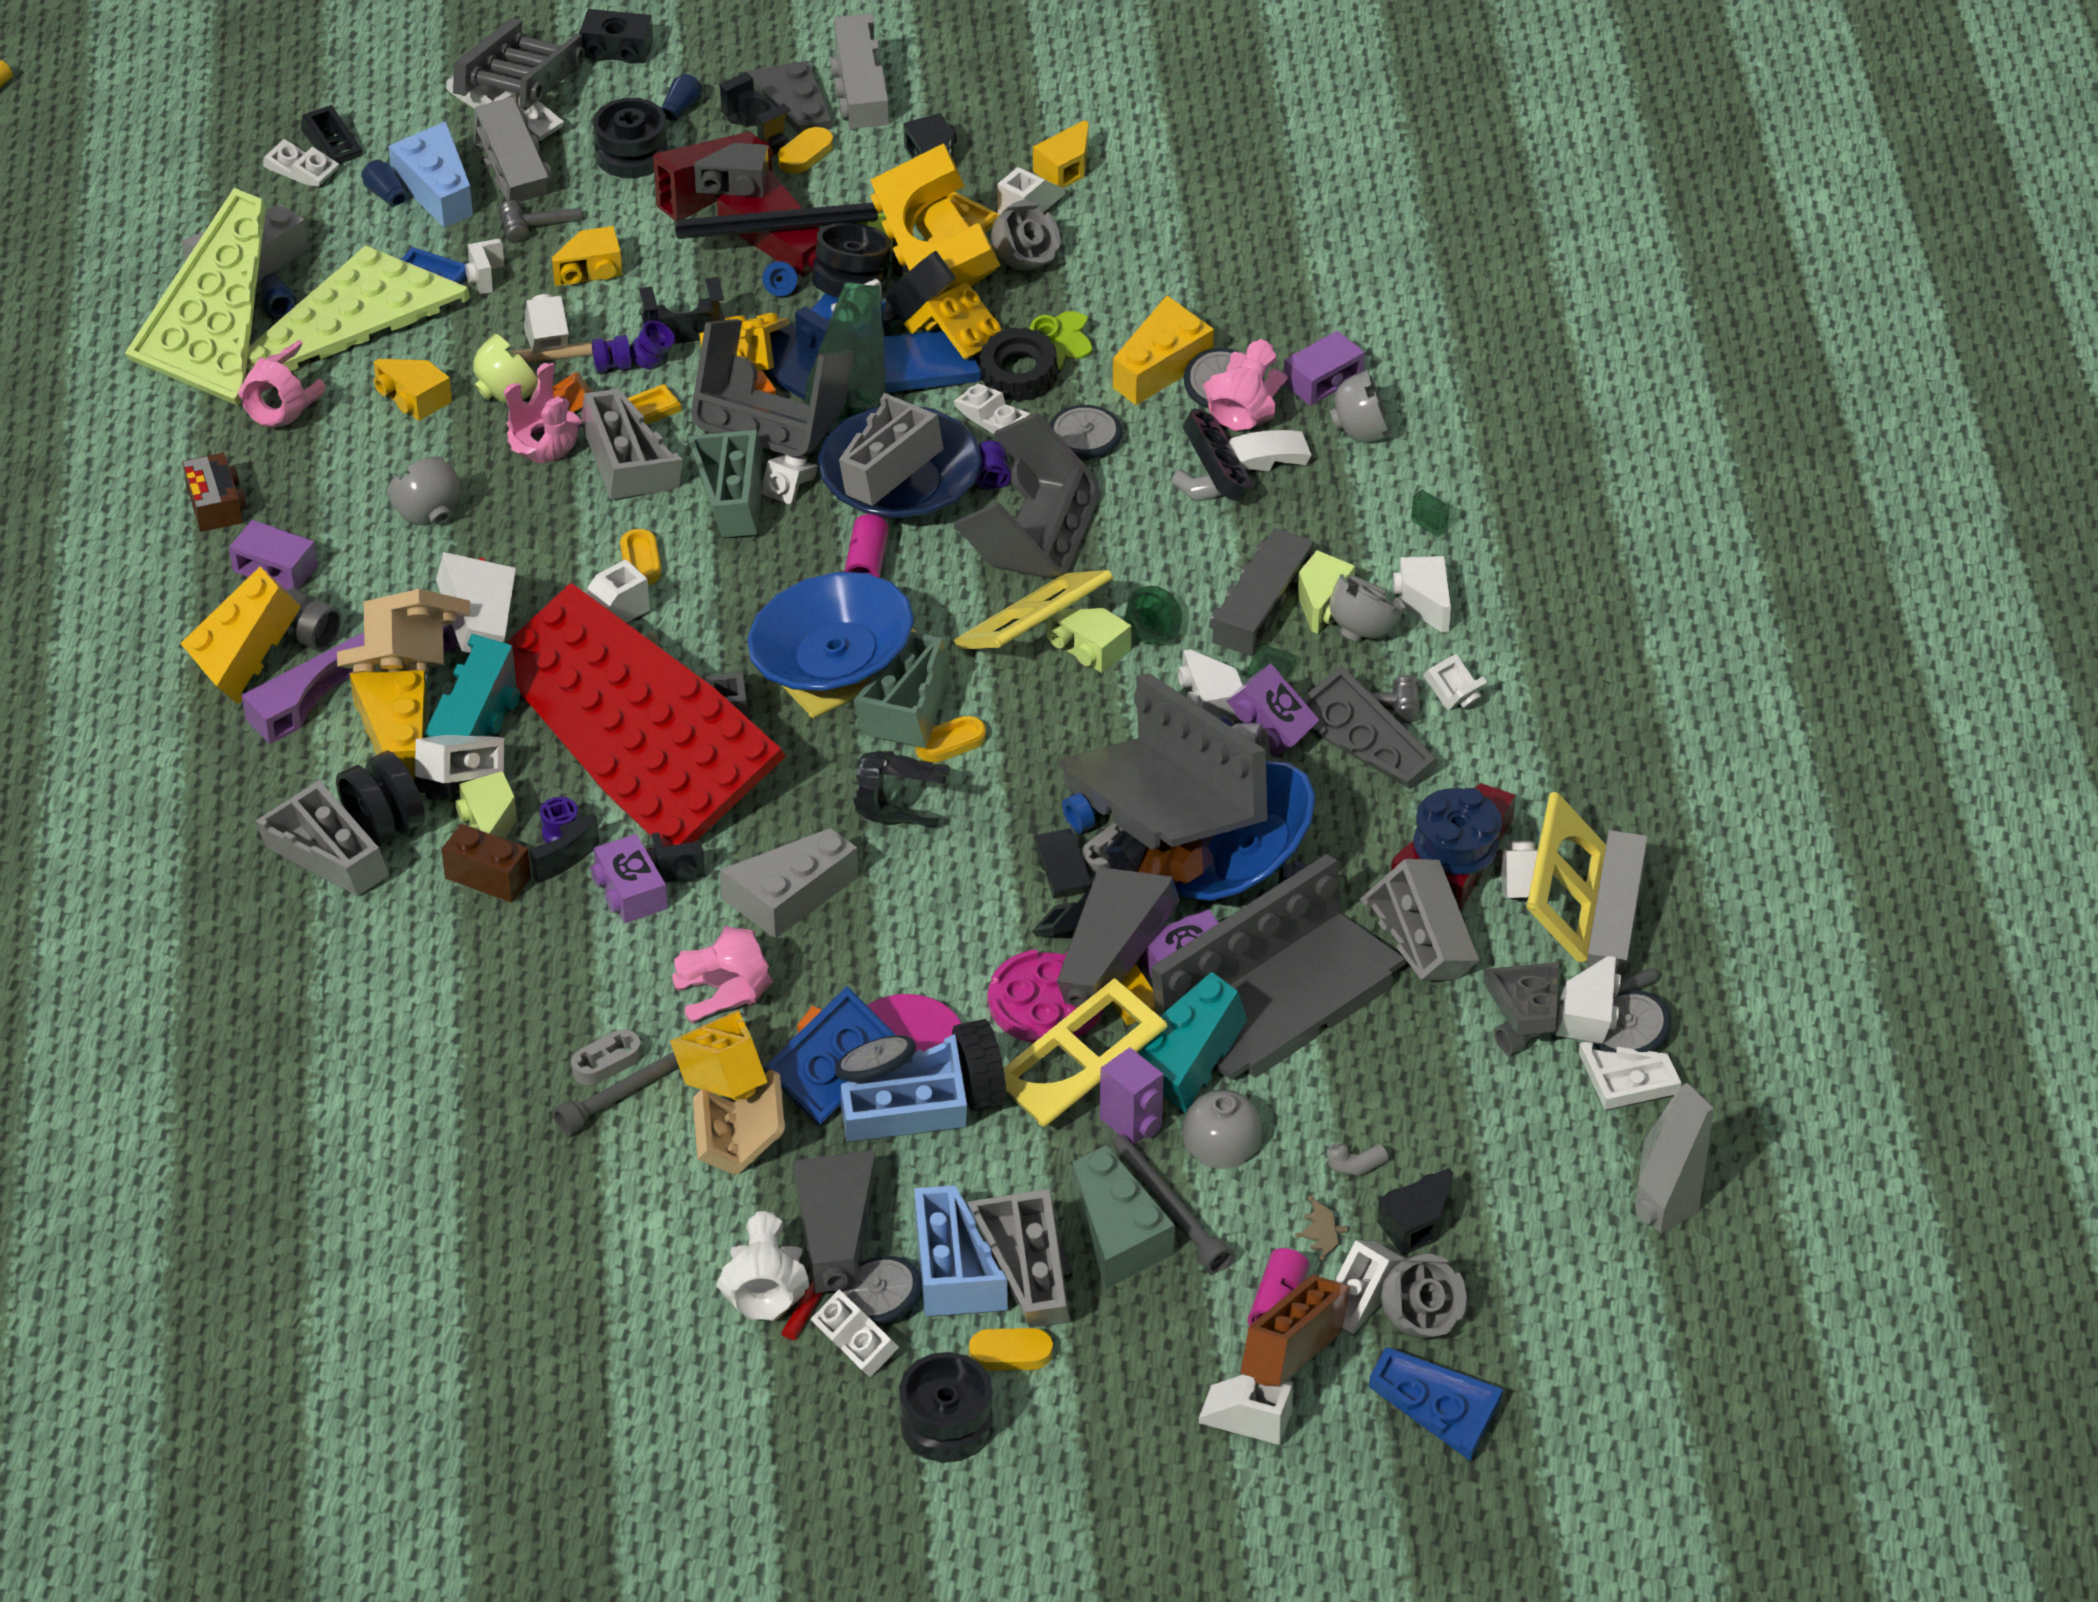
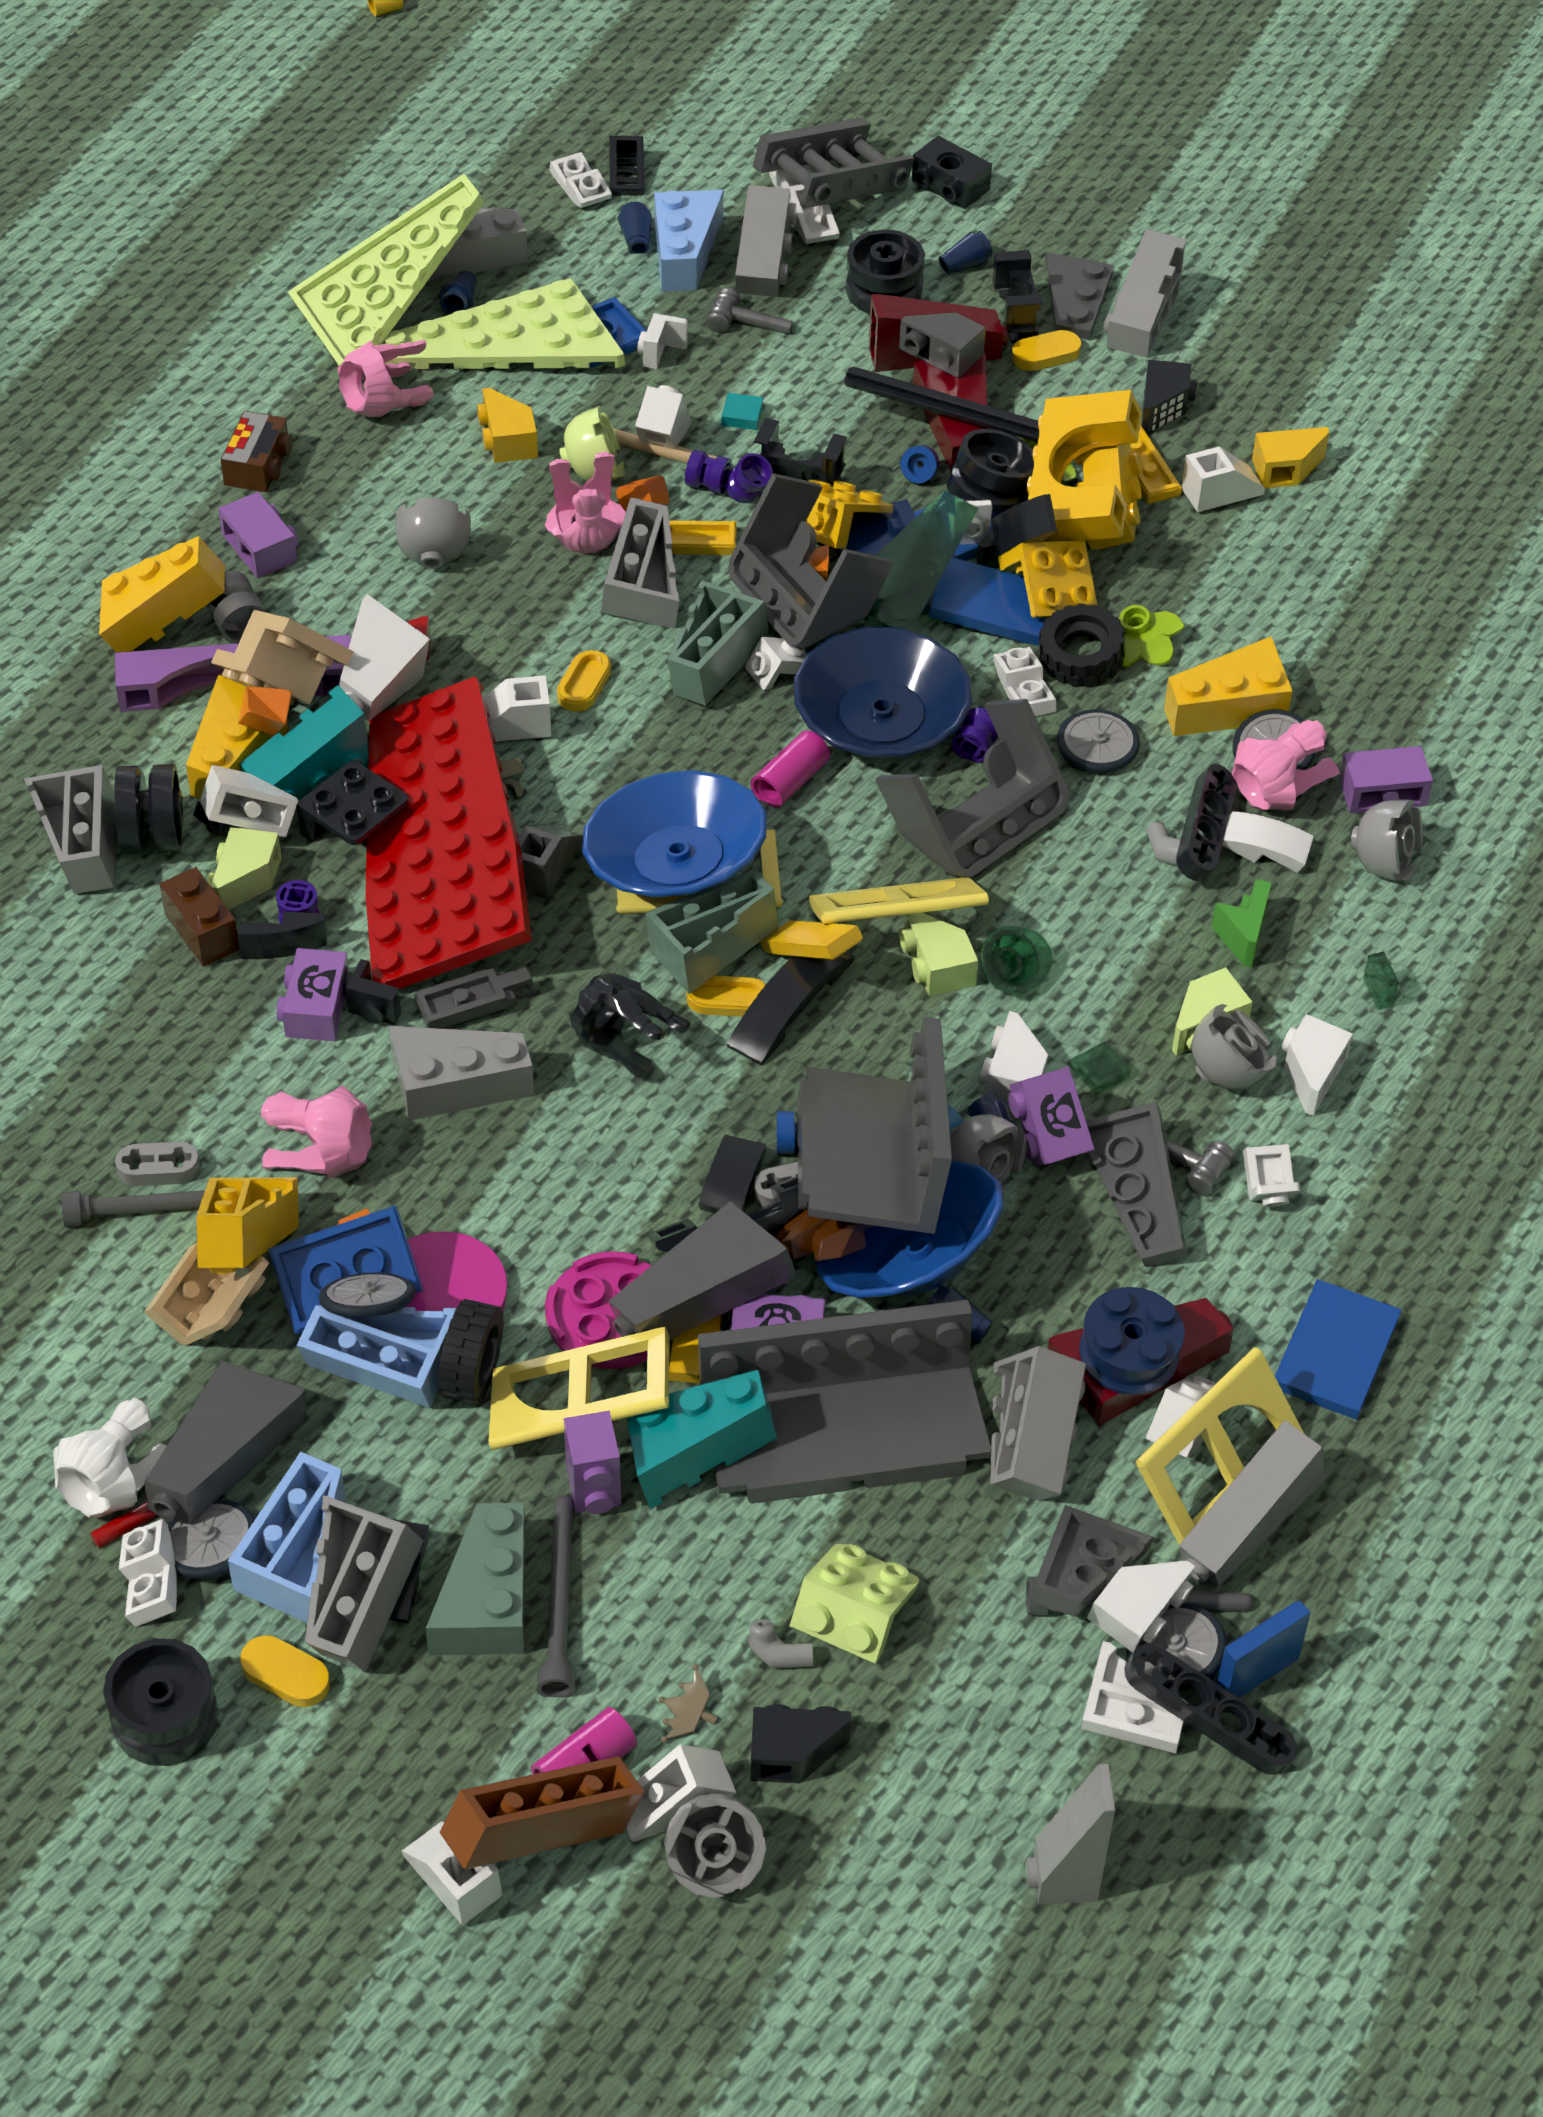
camera: 30 degrees right, 5 degrees up
(422, 678) = (265, 709): none -> orange slope
(543, 724) = (349, 805): none -> black bracket
(588, 257) = (759, 370): yellow slope -> none
(595, 296) = (742, 411): none -> teal tile
(753, 826) = (472, 996): none -> dark grey hinge
(889, 449) = (864, 676): light grey wedge -> none
(994, 664) = (812, 939): none -> yellow tile
(1000, 722) = (781, 1002): none -> black slope
(1025, 236) = (1180, 518): light grey cylinder -> none
(1222, 1129) = (668, 1544): light grey cylinder -> none
(1261, 592) = (1141, 986): dark grey brick -> none
(1300, 513) = (1242, 925): none -> bright green slope
(1386, 1103) = (852, 1600): none -> yellowish green bracket
(1437, 1398) = (656, 1967): blue wing -> none
(1589, 777) = (1337, 1349): none -> blue tile
(1642, 1043) = (1206, 1716): none -> black beam
(1697, 994) = (1264, 1650): none -> blue tile

